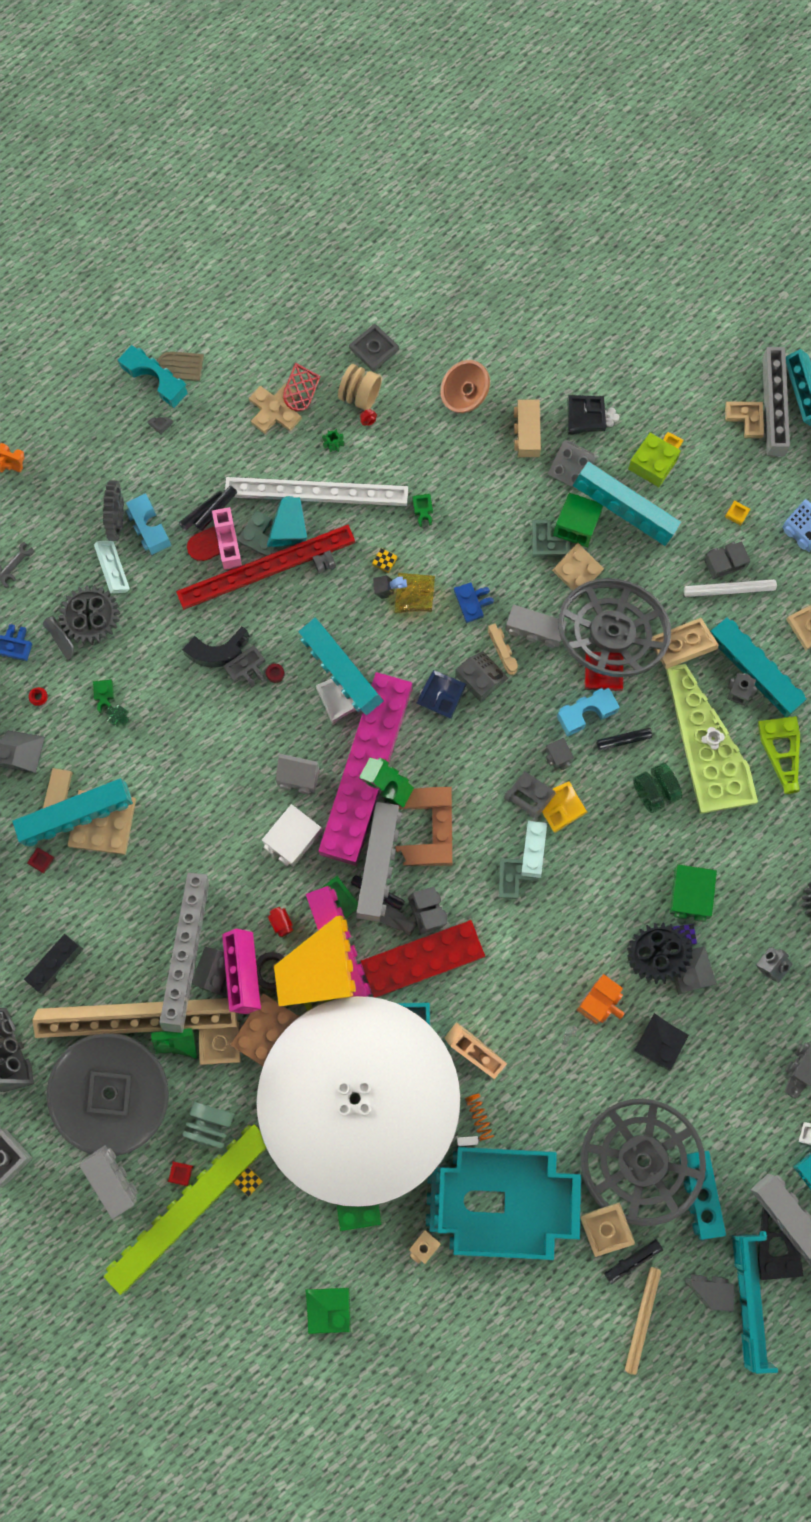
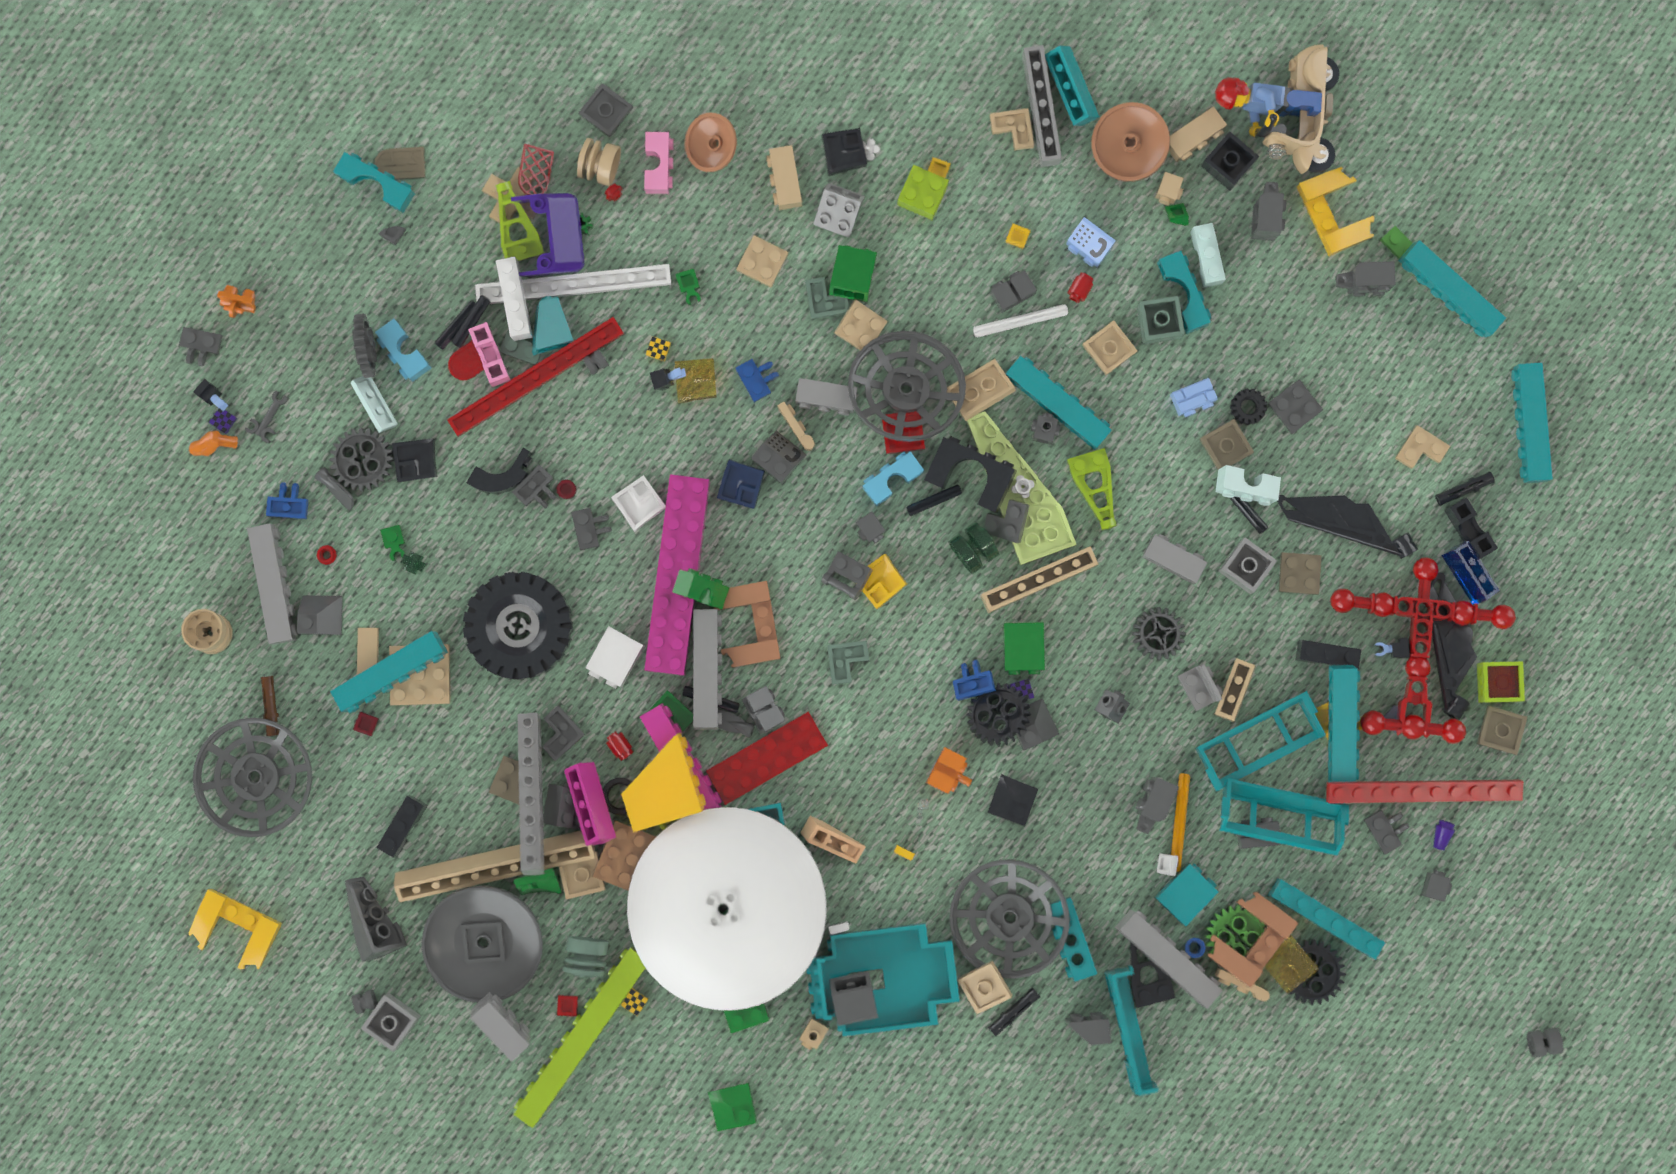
camera: 10 degrees left, 10 degrees up
(138, 623) = (415, 460): none -> black plate
(163, 937) = (507, 780): none -> dark tan plate
(178, 780) = (488, 620): none -> black wheel
(231, 902) = (566, 733): none -> dark grey plate
(259, 492) = (514, 299): none -> white brick
(275, 452) = (520, 249): none -> lime plate
(286, 712) = (586, 530): none -> dark grey hinge
(297, 774) = (608, 594): light grey slope -> none
(317, 442) = (563, 230): none -> dark purple windscreen
(341, 667) = (632, 475): teal brick -> none
(411, 412) = (659, 145): none -> bright pink arch
(469, 1099) = (836, 886): orange piece -> none
(471, 1216) = (853, 998): none -> dark grey slope
(495, 498) = (762, 261): none -> tan plate
(534, 849) = (859, 630): light aqua plate -> none
(544, 1075) = (904, 852): none -> yellow tile
(626, 503) = (900, 248): teal brick -> none
(638, 920) = (975, 684): none -> blue hinge
(643, 1321) = (1030, 1064): tan axle -> none
(648, 697) = (998, 474): none -> black arch
(697, 773) = (1010, 526): none -> dark grey plate
(717, 829) = (1039, 579): none -> tan brick
(791, 566) = (1080, 287): none -> red brick

